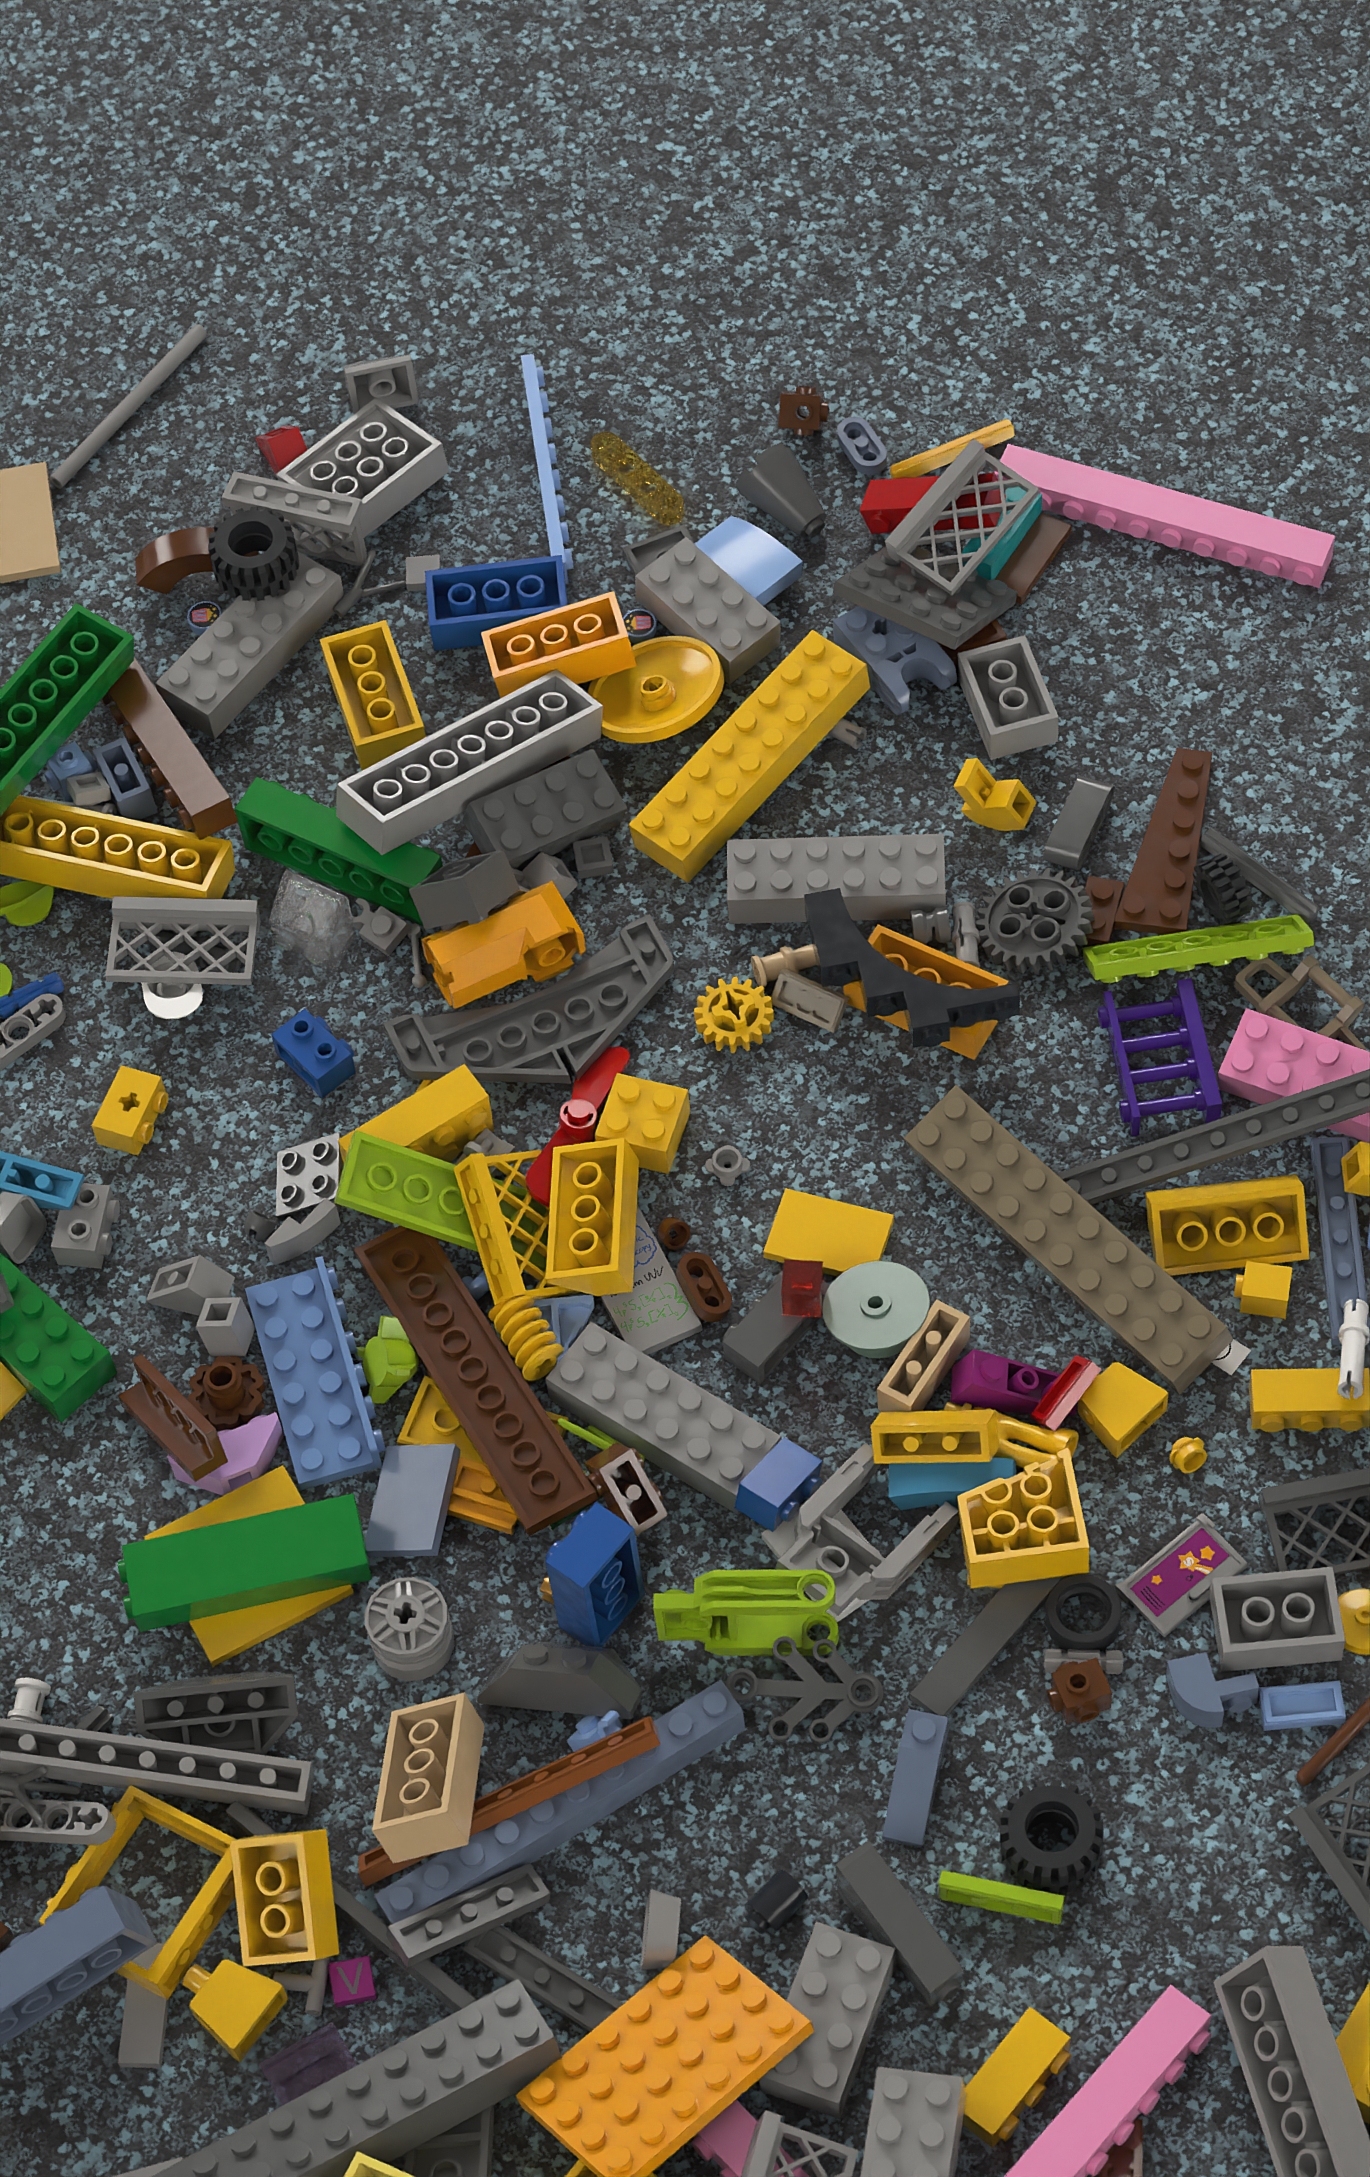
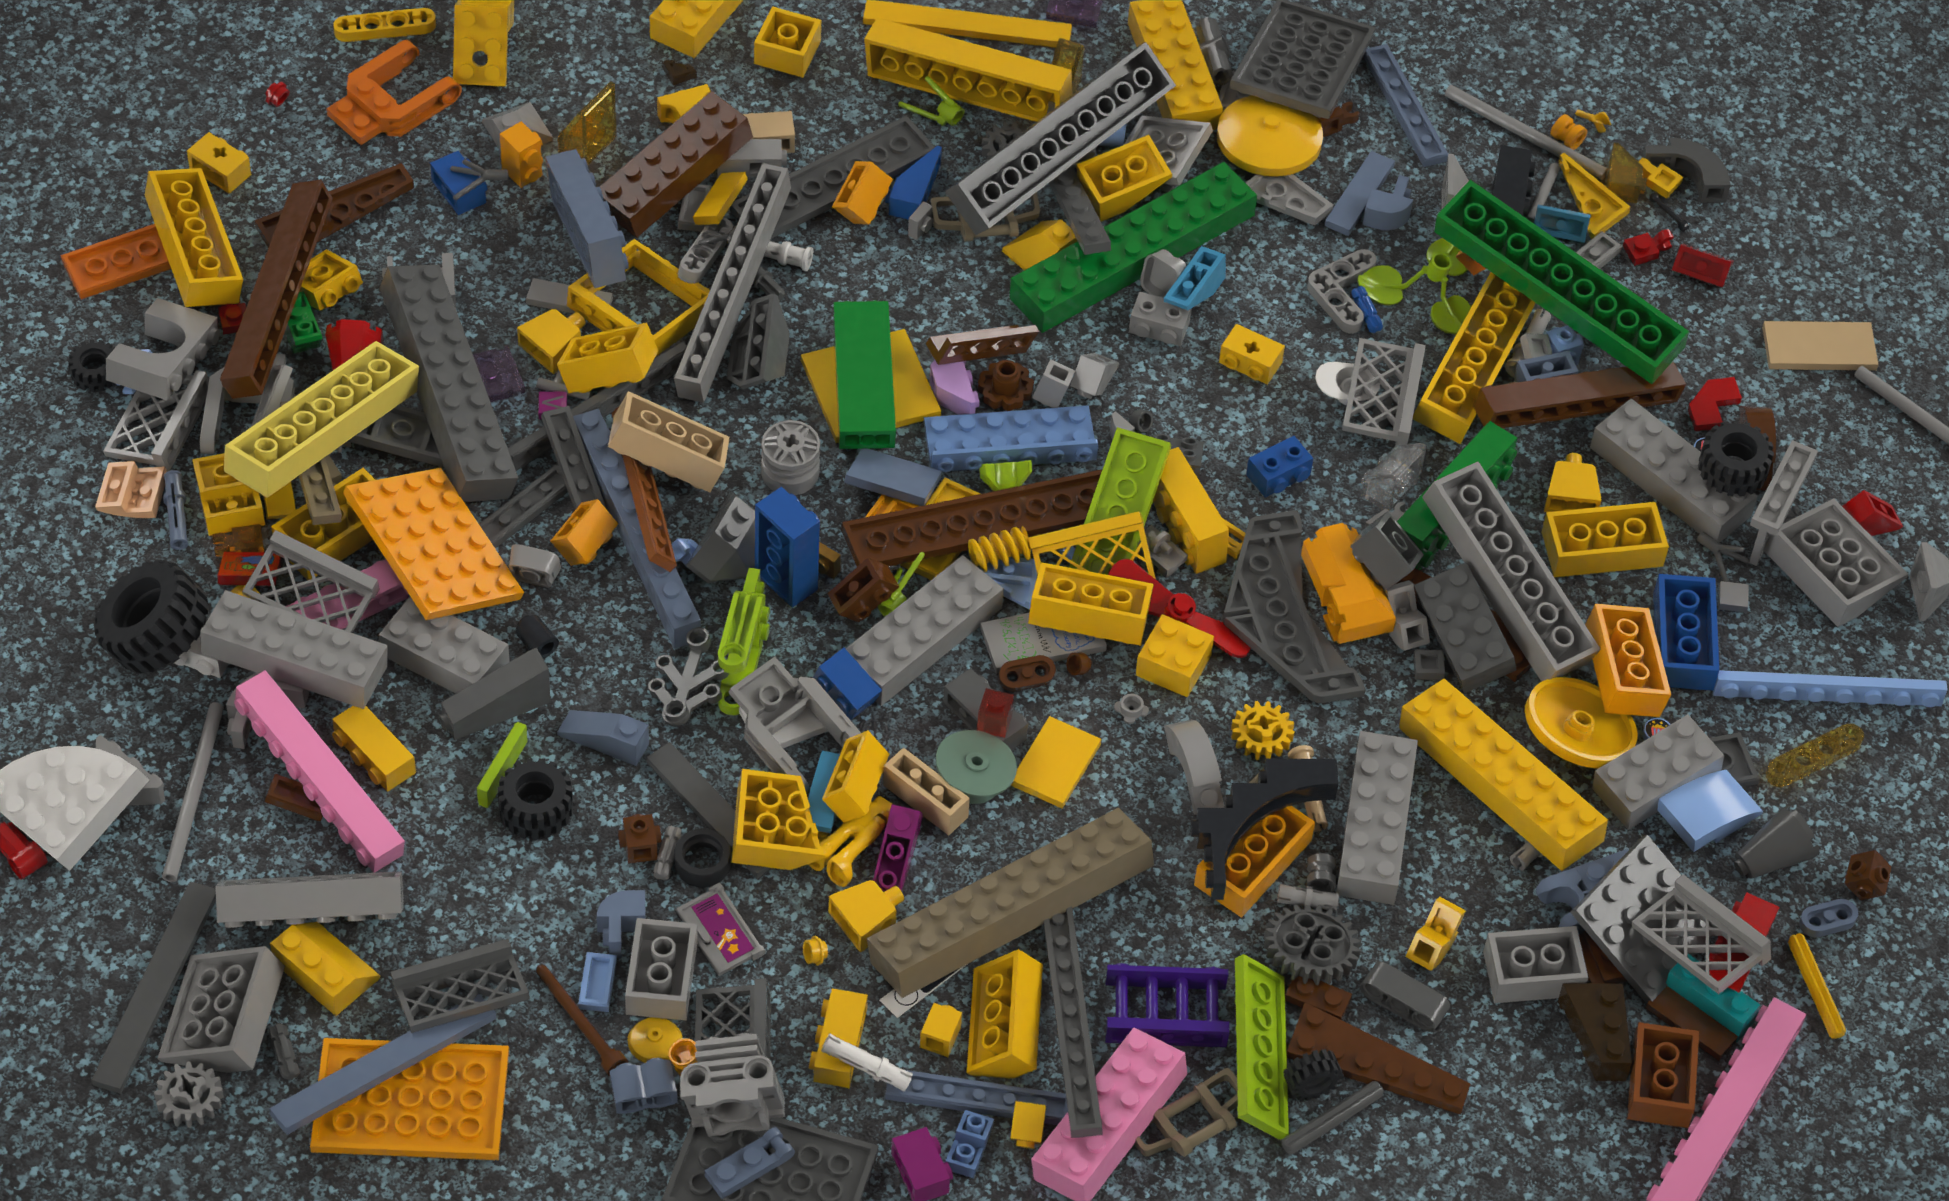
camera: 90 degrees right, 5 degrees down
(145, 625) = (1704, 407): none -> red tile
(290, 740) = (1573, 485): none -> yellow torso
(589, 1873) = (584, 533): none -> light orange brick
(798, 1069) = (1193, 749): none -> light grey arch
(1065, 1392) = (876, 869): red tile -> none
(1075, 628) = (1601, 1027): none -> dark brown wedge
(1121, 566) = (1663, 1075): none -> dark orange brick

